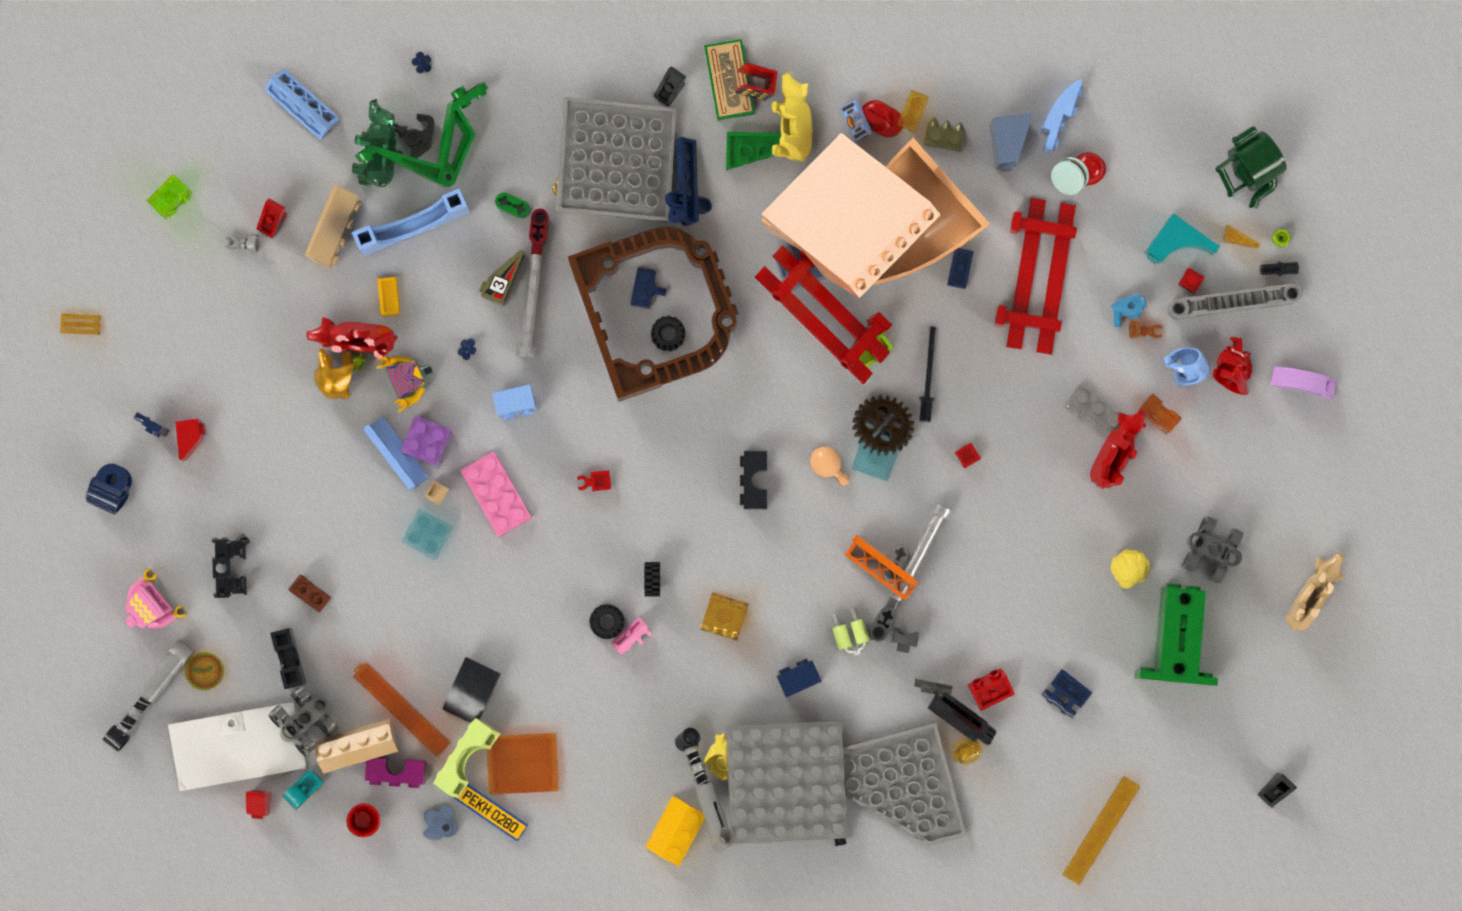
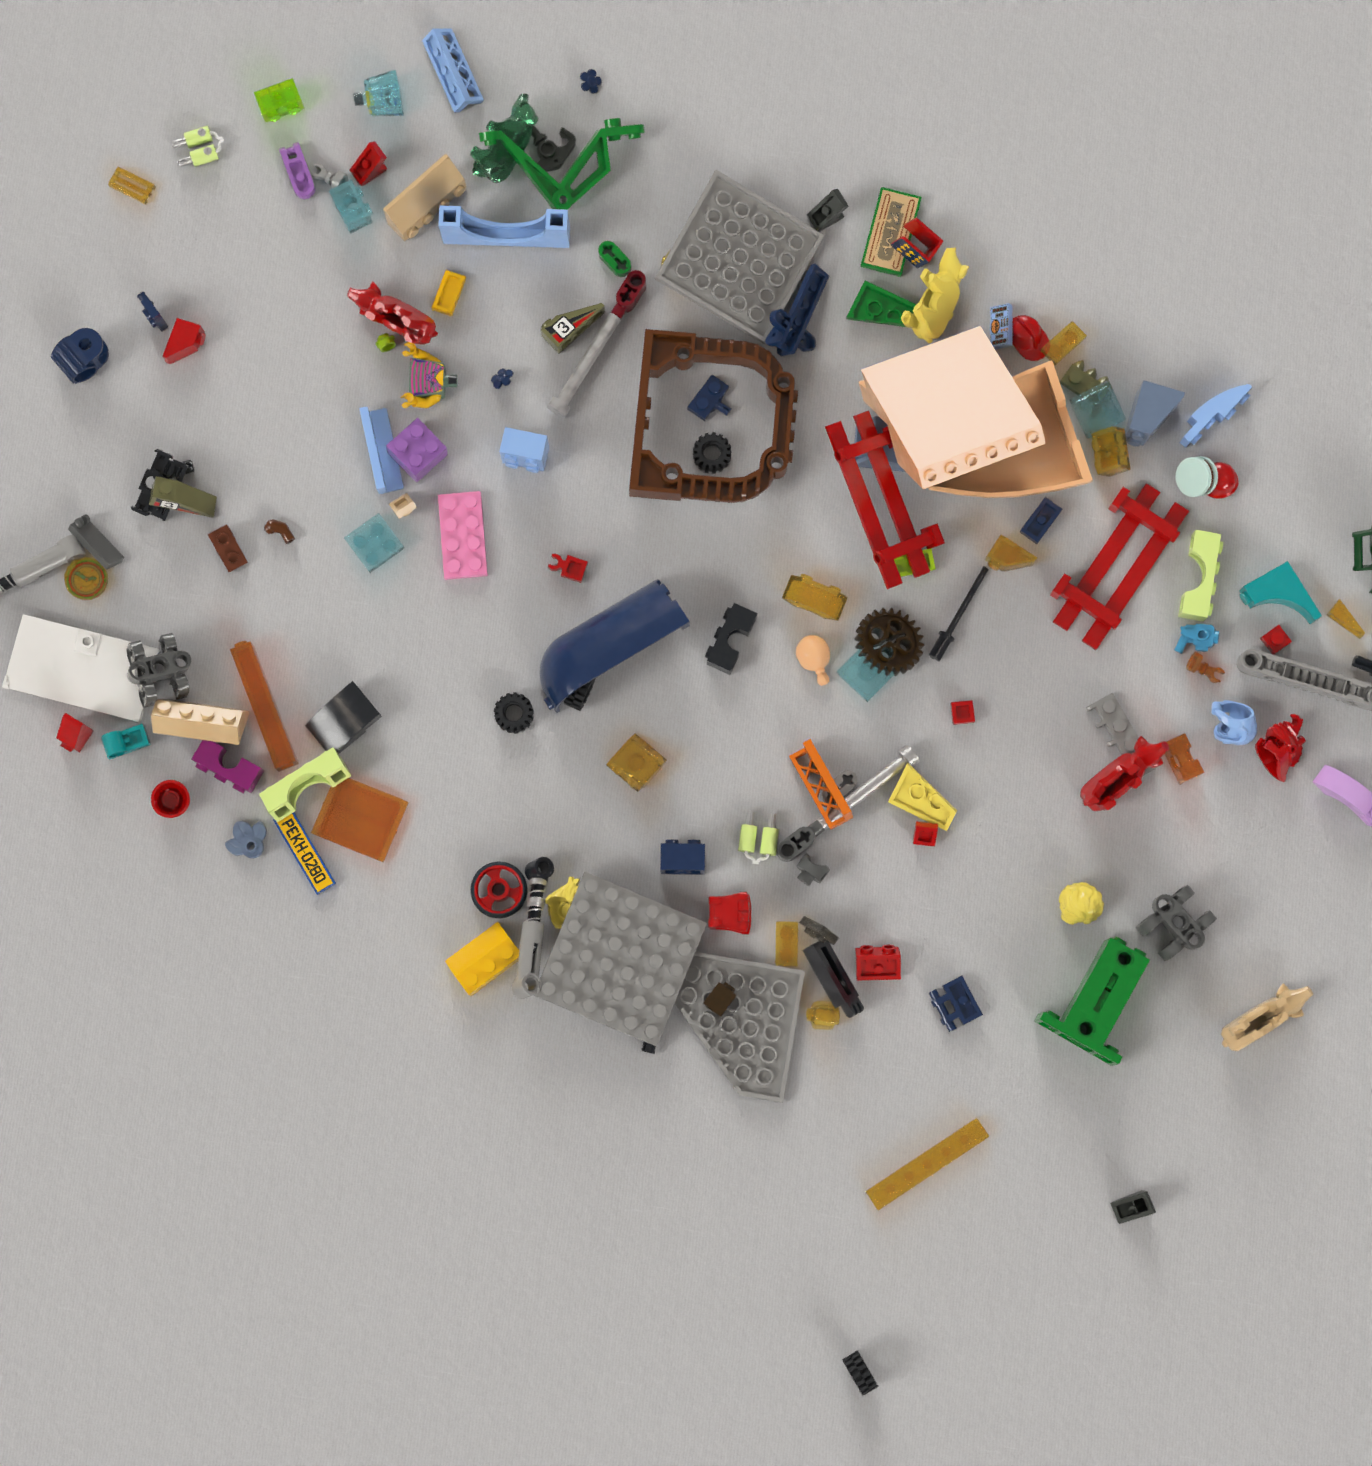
camera: 30 degrees right, 5 degrees down
(127, 273) = (201, 155): none -> yellowish green piece
(148, 606) = (61, 488): bright pink torso -> none
(198, 638) = (95, 542): none -> dark grey hinge
(214, 250) = (298, 171): none -> medium lavender plate
(252, 569) = (181, 497): none -> olive slope
(253, 153) = (381, 95): none -> clear light blue torso
(263, 254) = (356, 217): none -> clear light blue brick
(290, 663) = (178, 590): black arch -> none
(334, 382) = (351, 346): pearl gold piece -> none
(342, 556) = (279, 527): none -> reddish brown arm
(630, 635) = (523, 740): bright pink plate -> none
(657, 529) = (608, 641): none -> dark blue panel
(679, 766) = (485, 904): none -> red wheel
(806, 415) = (815, 597): none -> clear yellow brick
(856, 704) = (730, 913): none -> red piece
(880, 776) = (720, 998): none -> dark brown brick
(911, 707) = (786, 943): none -> clear yellow plate
(946, 310) = (1008, 556): none -> clear yellow slope
(964, 541) = (921, 799): none -> light yellow wing
(965, 155) = (1097, 408): none -> clear light blue plate
(982, 568) = (925, 833): none -> red plate
(991, 186) = (1110, 451): none -> clear yellow brick
(1103, 232) = (1205, 550): none -> yellowish green arch

